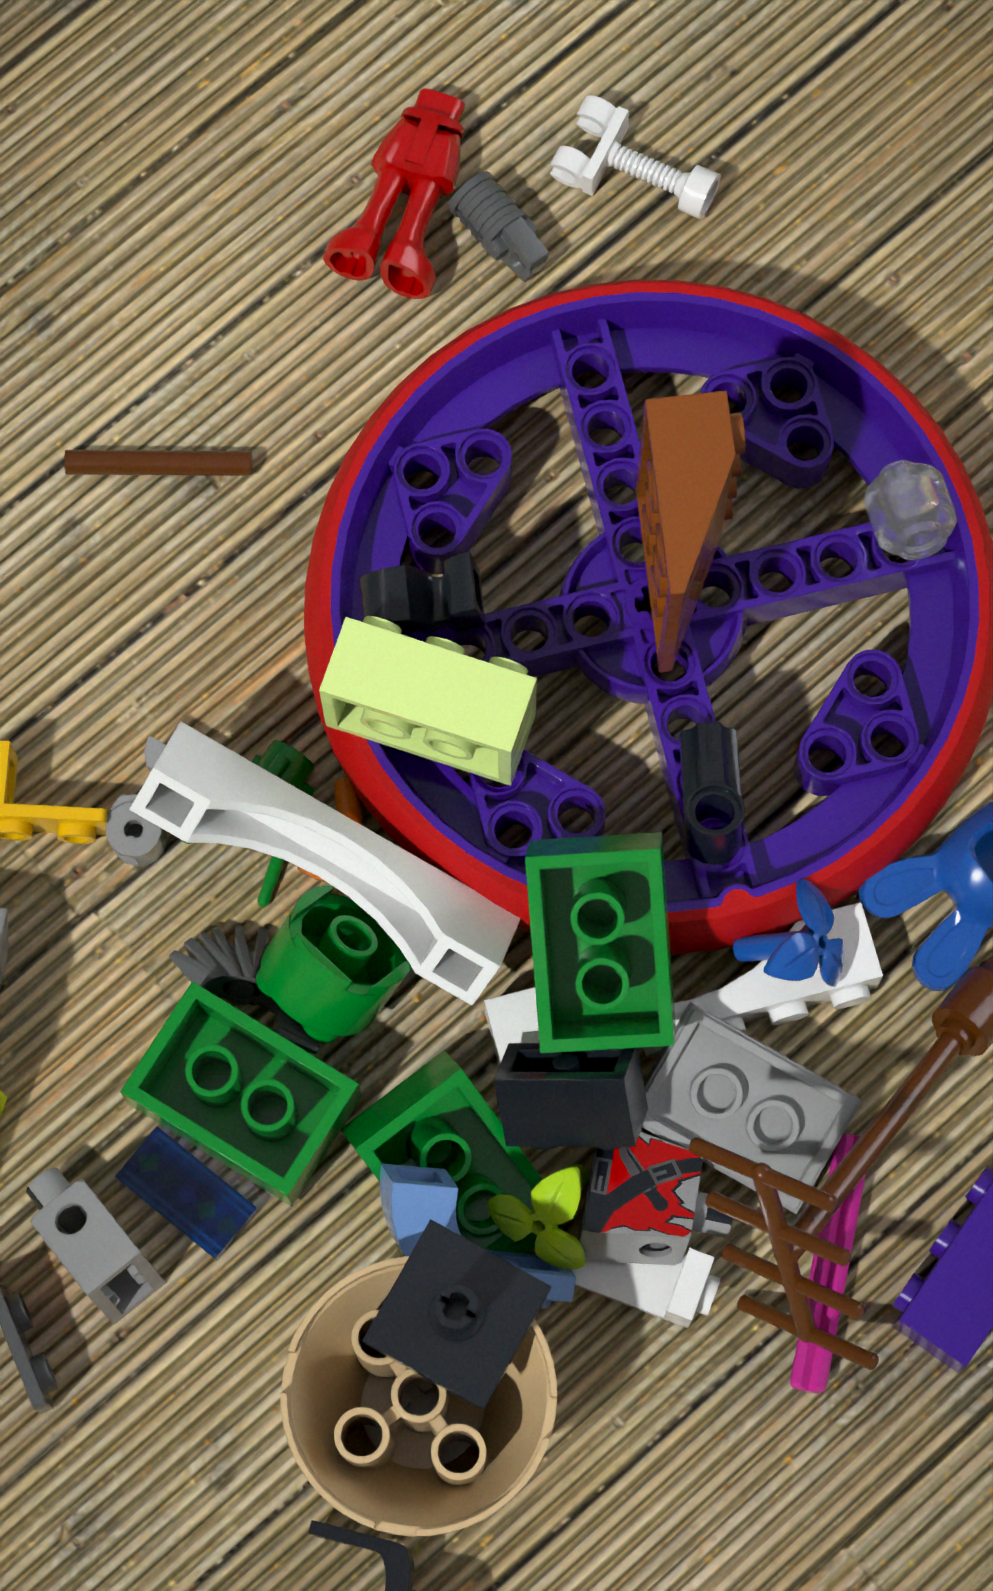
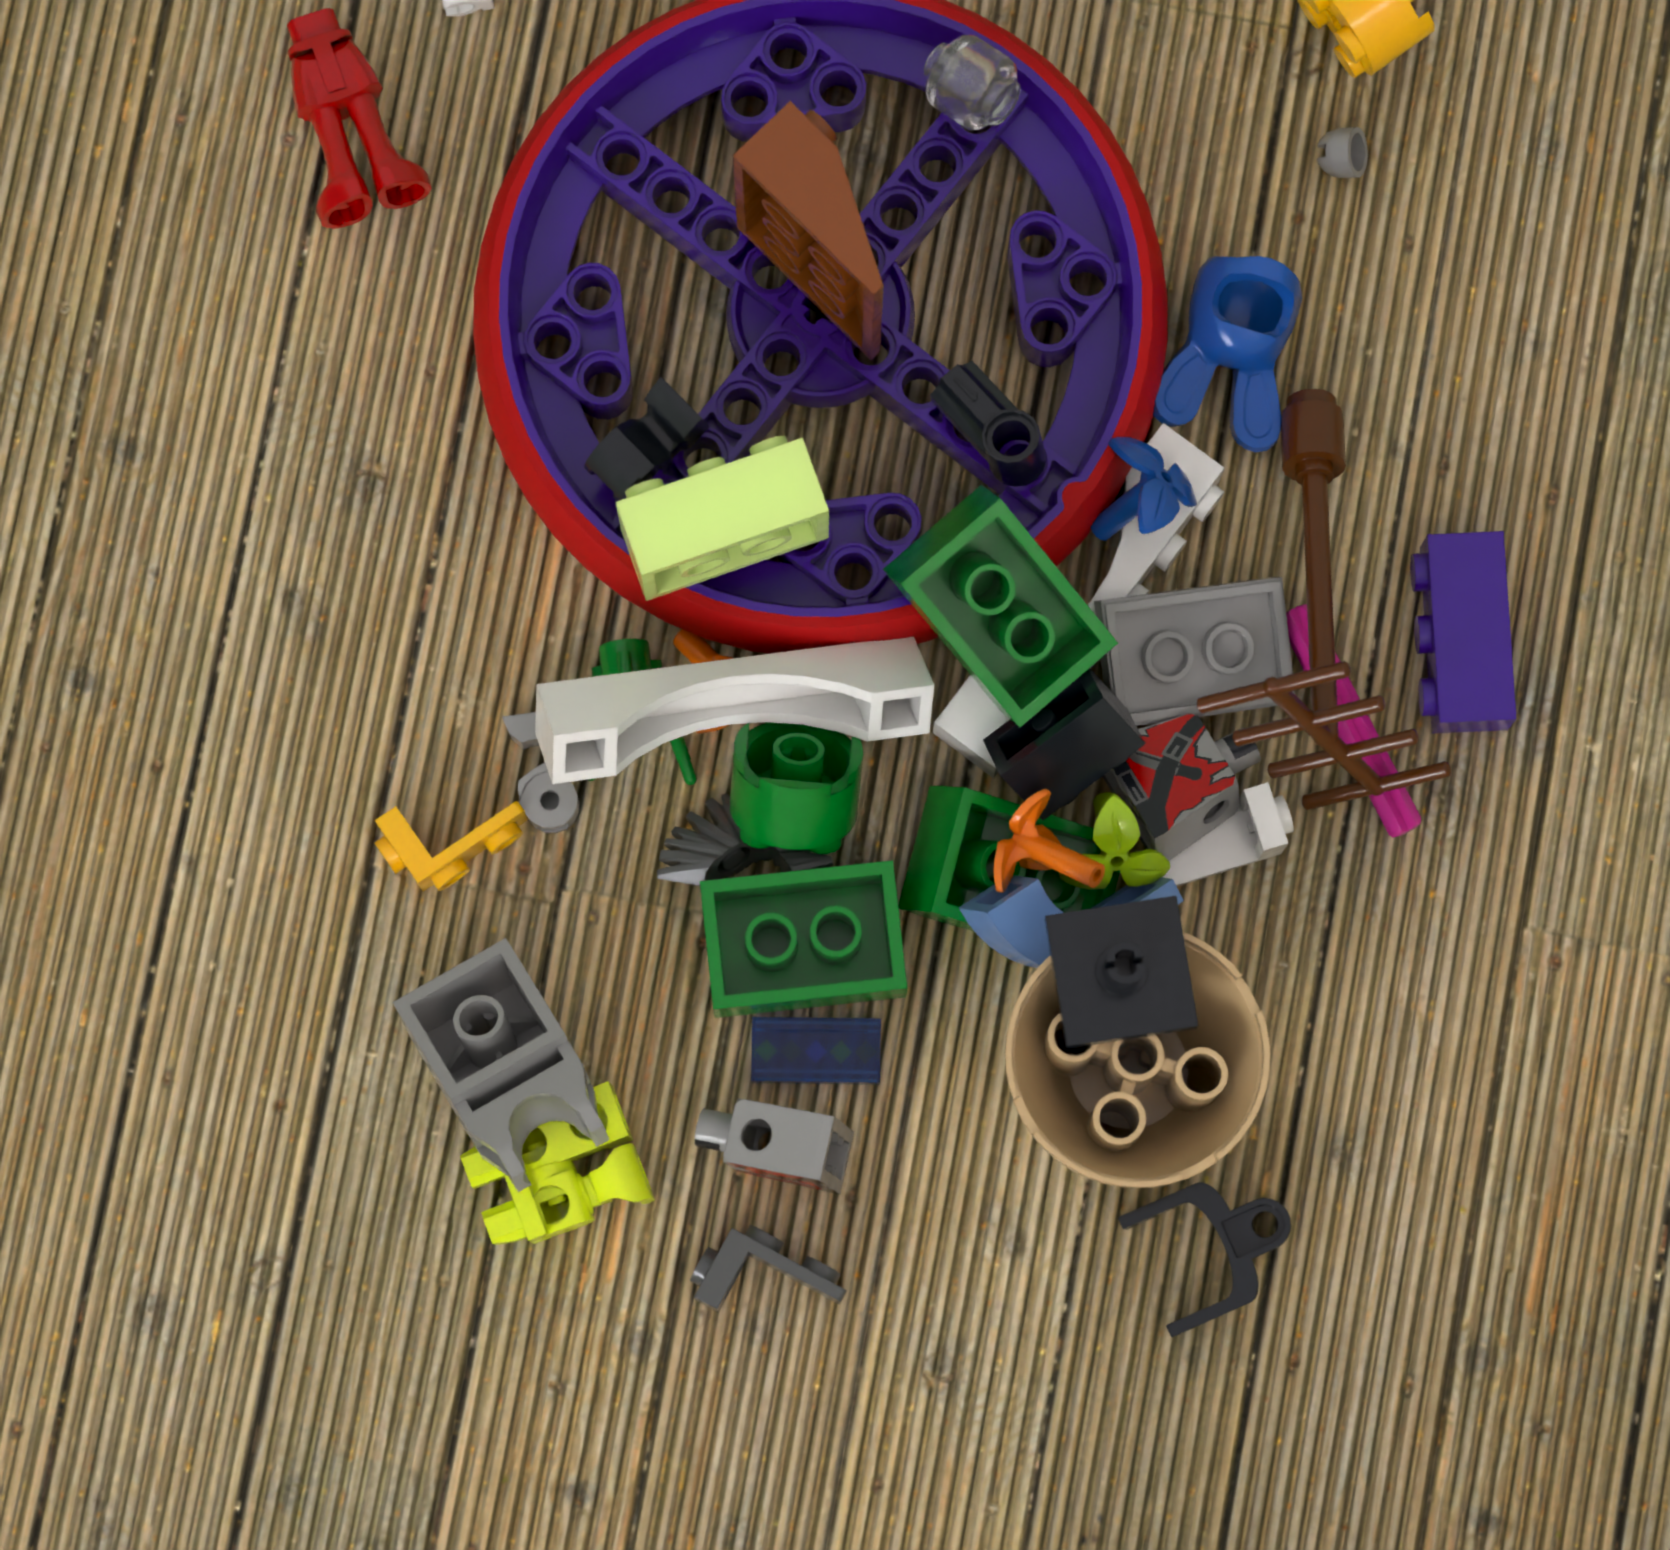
camera: 40 degrees left, 5 degrees up
(158, 462) = (321, 492): reddish brown bar -> none
(481, 1164) = (1040, 849): none -> orange plant
(499, 225) = (444, 90): dark grey hinge -> none

